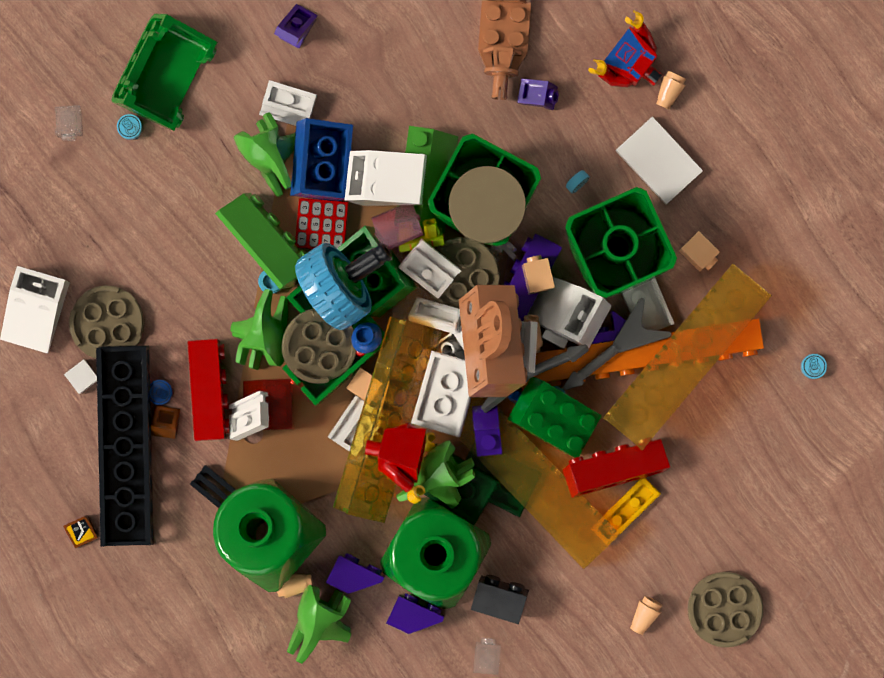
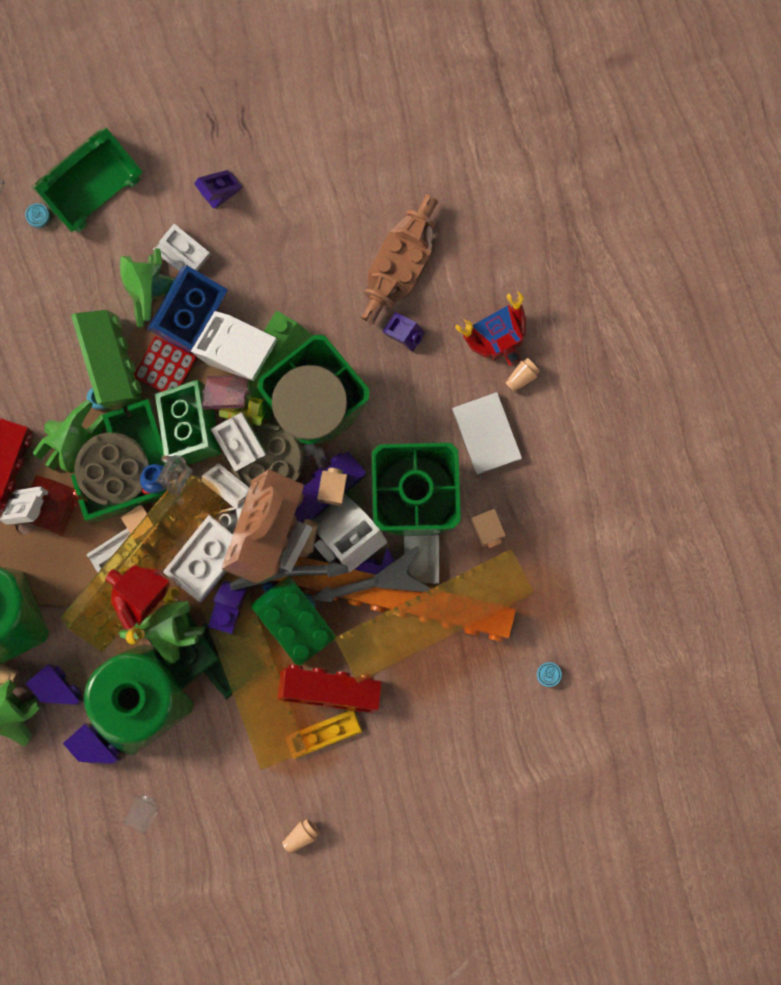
camera: 25 degrees right, 5 degrees down
(336, 284) = (145, 418): dark azure wheel -> none
(385, 325) = (174, 473): none -> clear bracket
(500, 598) = (175, 765): black brick -> none
(577, 181) = (406, 421): medium azure tile -> none
(725, 609) = (375, 862): dark tan tile -> none

